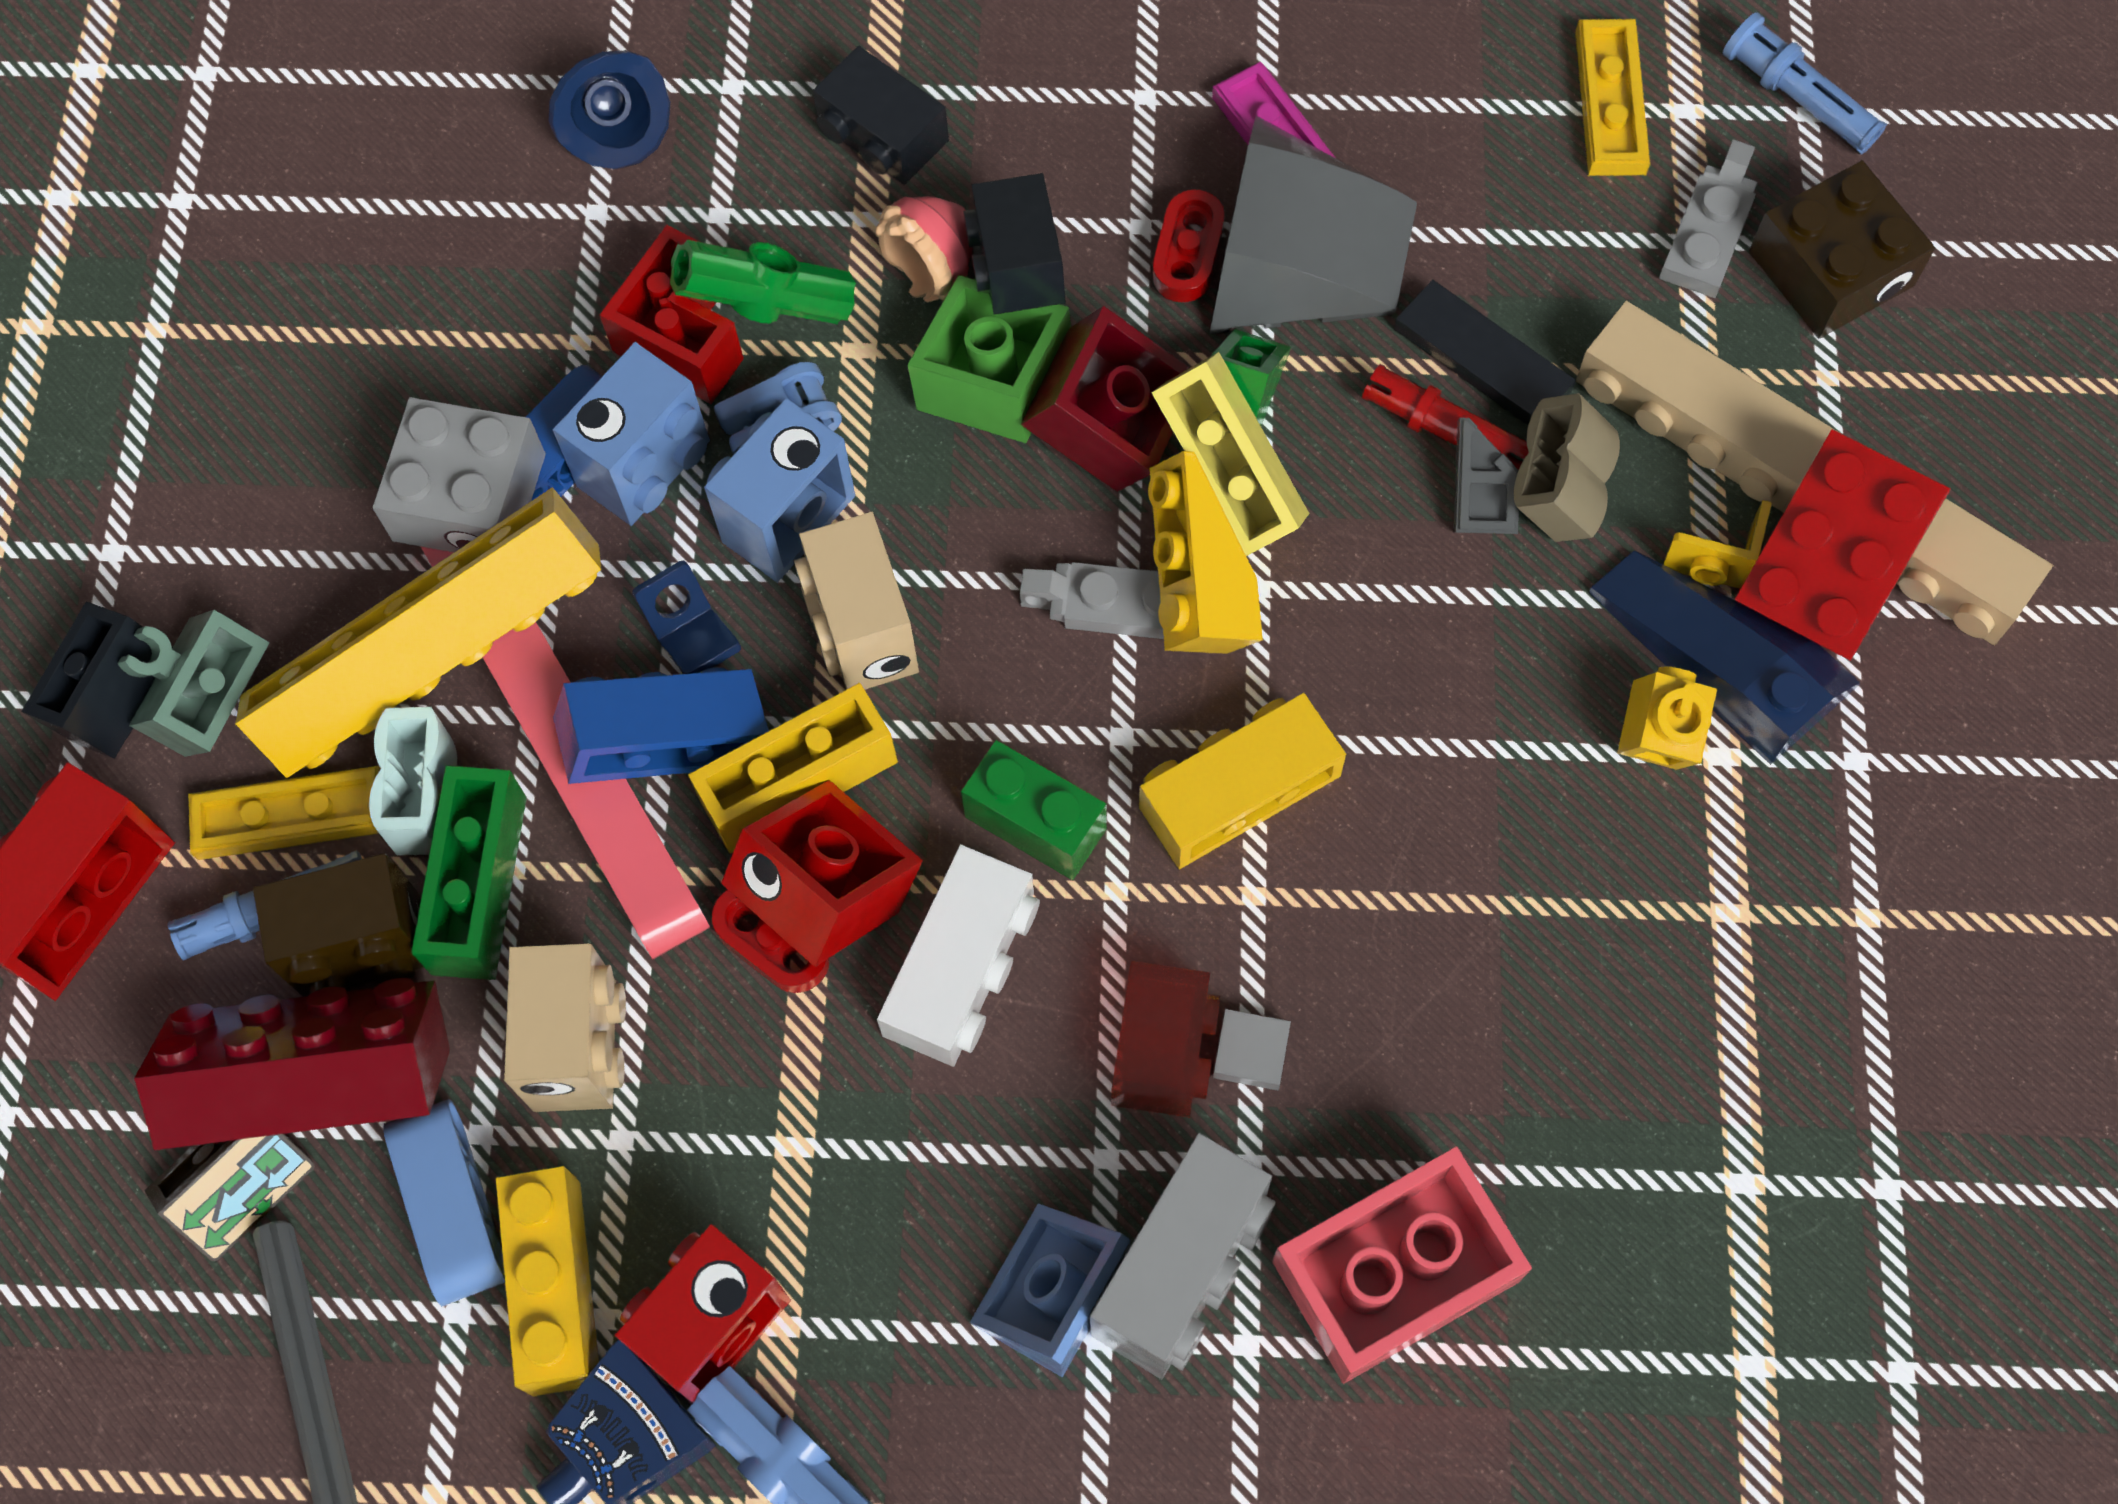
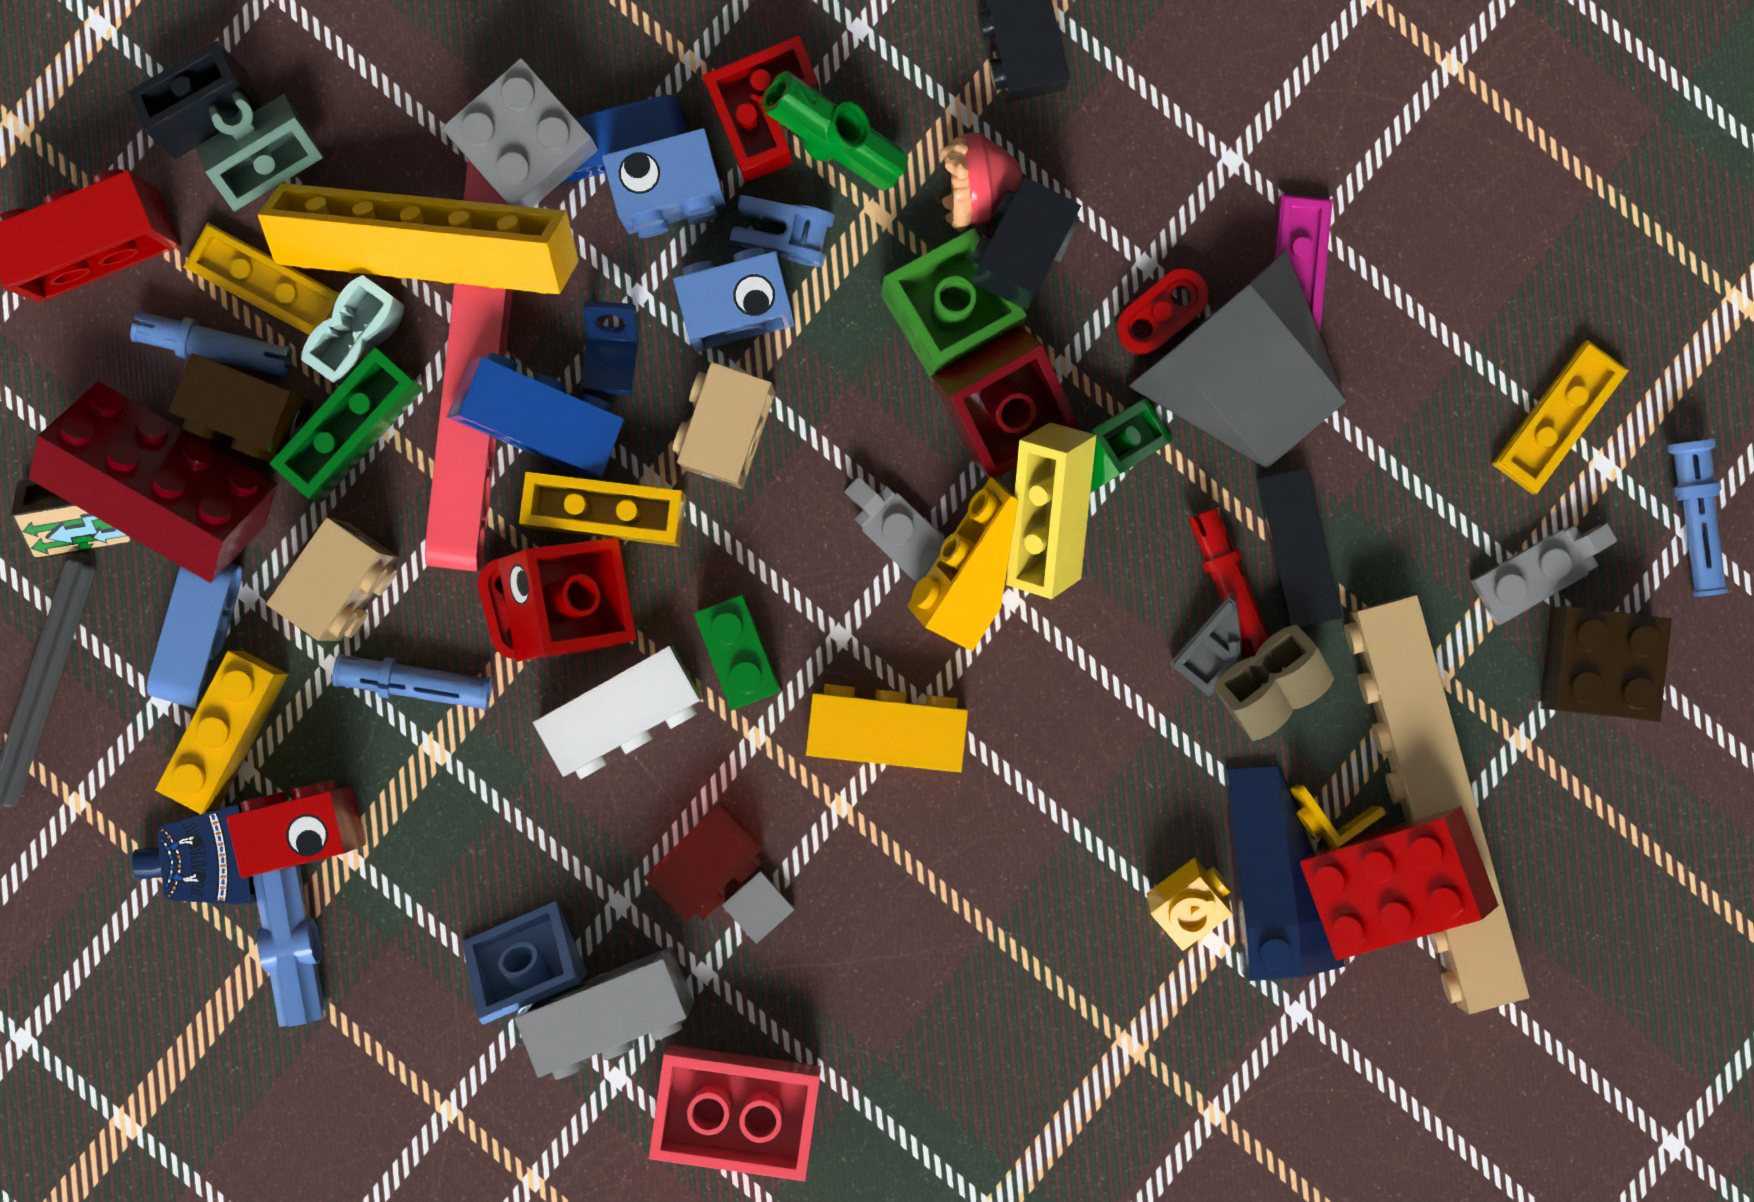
camera: 30 degrees right, 20 degrees up
(648, 1122) = (391, 678): none -> medium blue pin

